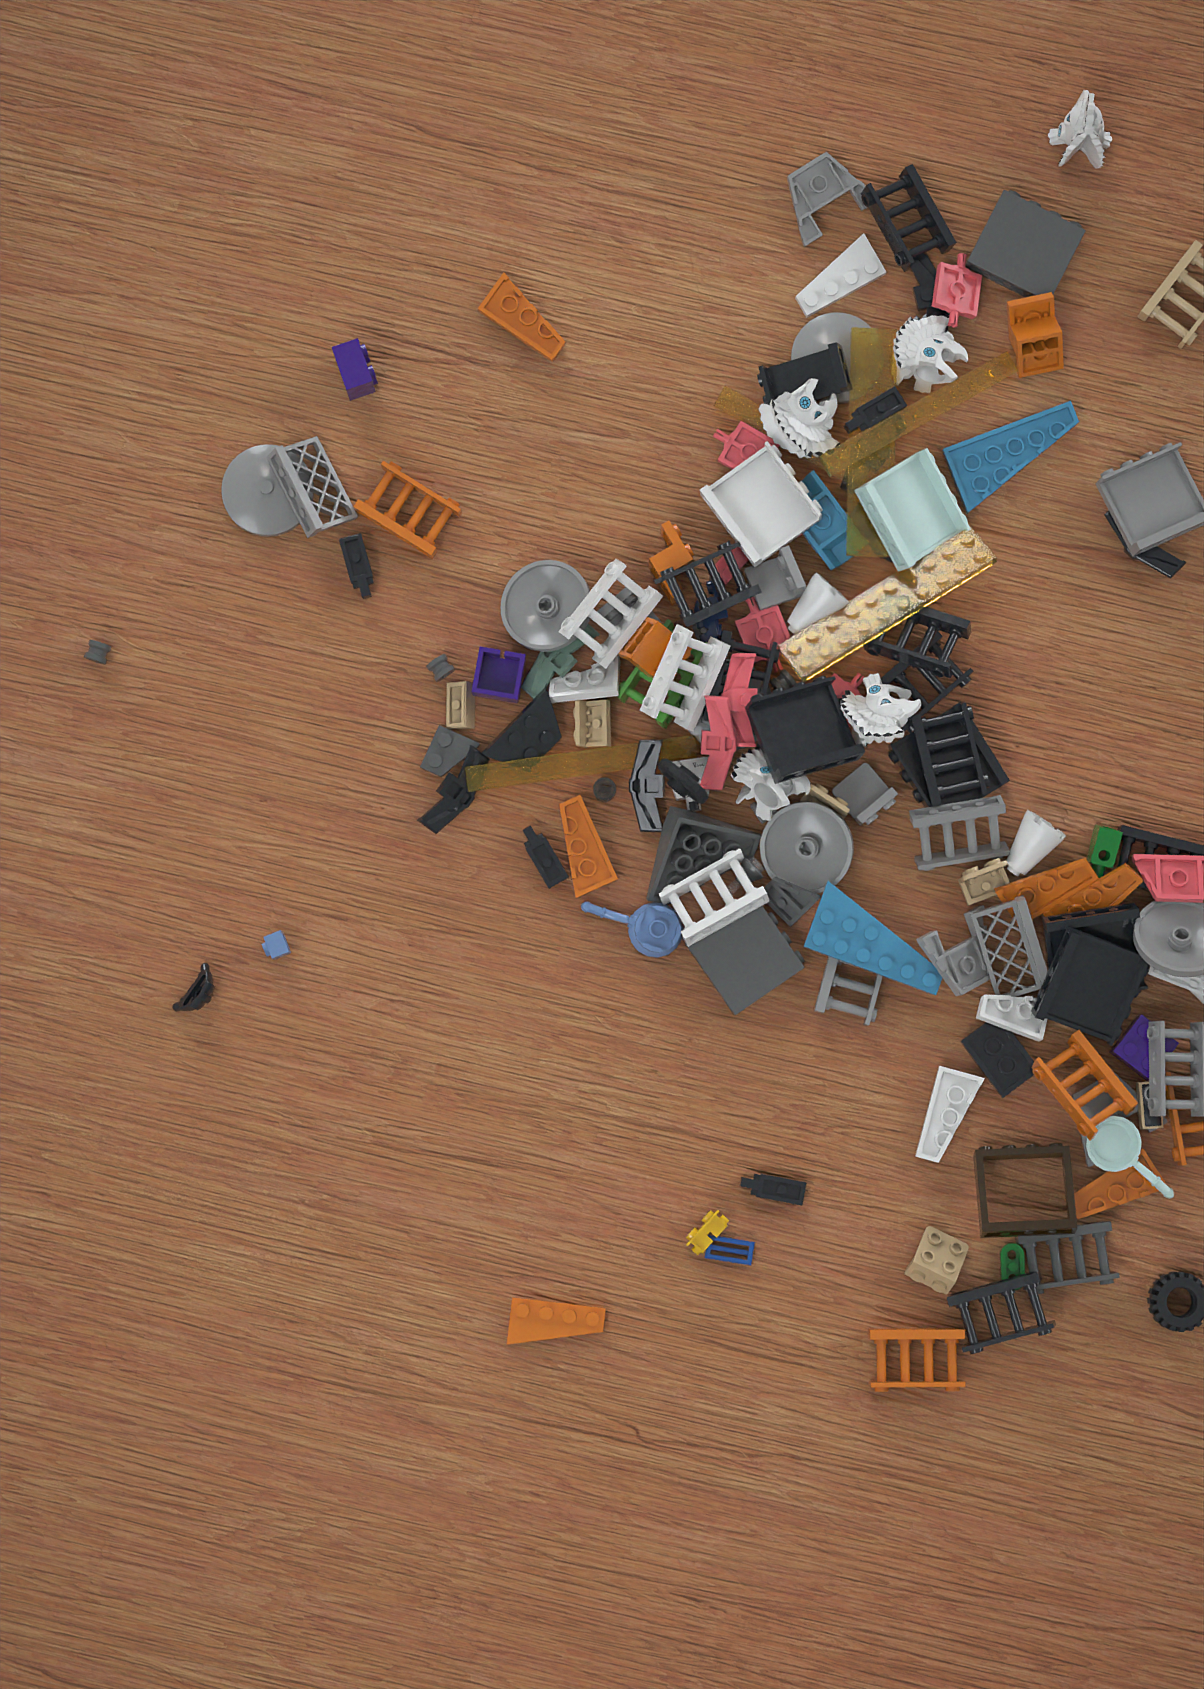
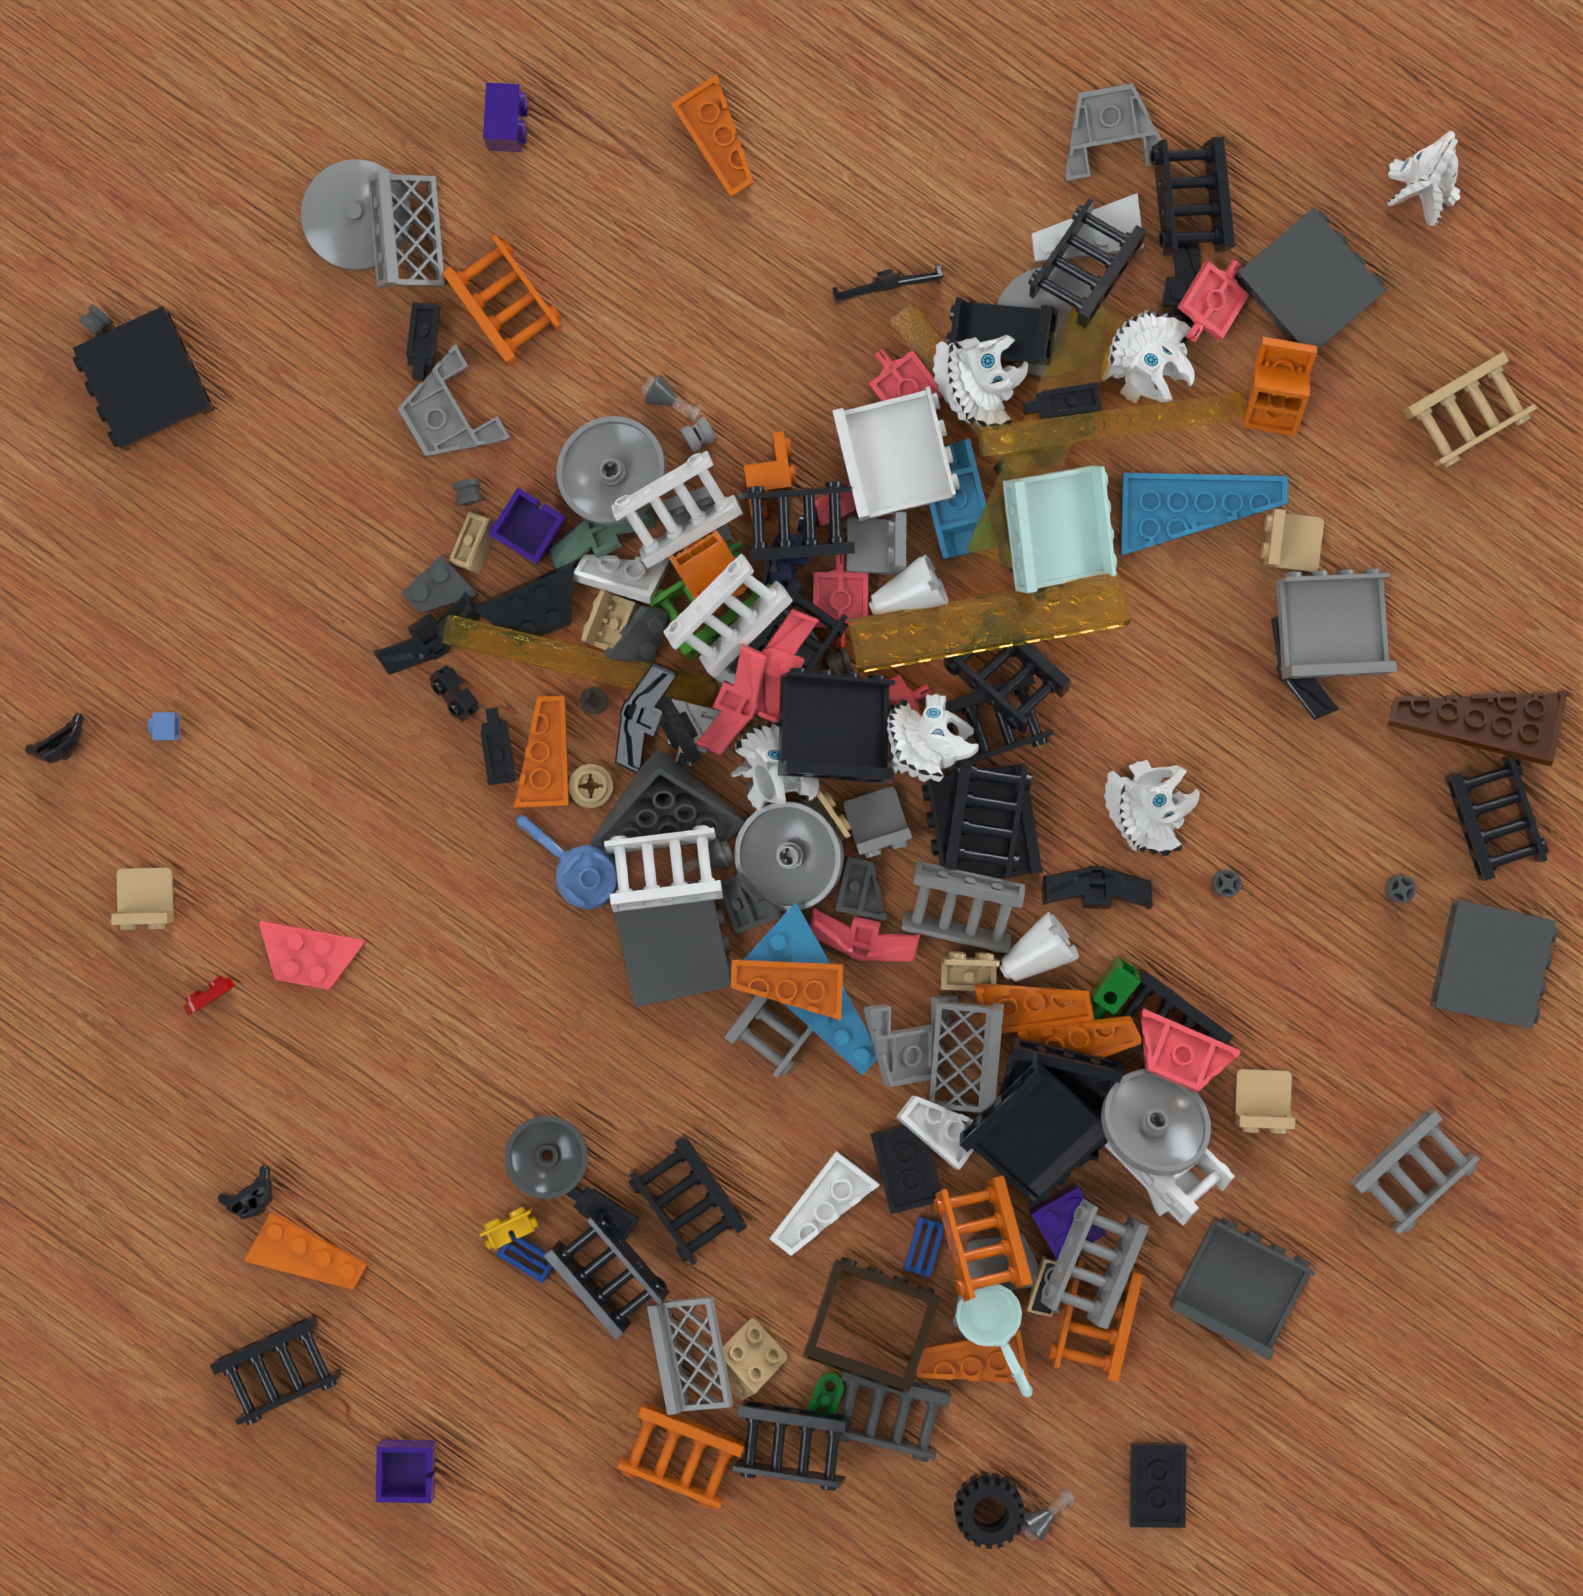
camera: 25 degrees right, 5 degrees up
(151, 681) = (141, 378): none -> black panel
(313, 1086) = (144, 898): none -> tan bracket
(388, 1151) = (217, 988): none -> red plate
(393, 620) = (437, 418): none -> light grey wing
(460, 1080) = (308, 955): none -> coral wing
(483, 824) = (446, 686): none -> black hinge
(494, 1291) = (252, 1199): none -> black piece
(545, 1416) = (279, 1343): none -> black fence
(558, 532) = (660, 393): none -> piece
(602, 551) = (704, 431): none -> light grey wheel
(621, 723) = (640, 636): none -> dark grey wing
(639, 860) = (581, 795): none -> tan gear
(698, 377) = (886, 281): none -> black plate
(703, 1459) = (405, 1471): none -> dark purple piece
(731, 1165) = (539, 1175): none -> dark grey dish
(800, 1258) = (596, 1297): none -> black fence
(857, 942) = (799, 984): none -> orange wing
(858, 1142) = (699, 1175): none -> black fence
(866, 312) = (1100, 286): none -> black fence
(872, 853) = (859, 890): none -> dark grey wing
(873, 1277) = (669, 1353): none -> light grey fence
(891, 891) = (863, 939): none -> coral plate
(1046, 1093) = (918, 1268): none -> blue tile
(1057, 776) = (1097, 887): none -> black plate
(1070, 698) = (1147, 809): none -> white piece
(1095, 449) = (1292, 541): none -> tan bracket
(1159, 729) = (1230, 883): none -> dark grey wheel

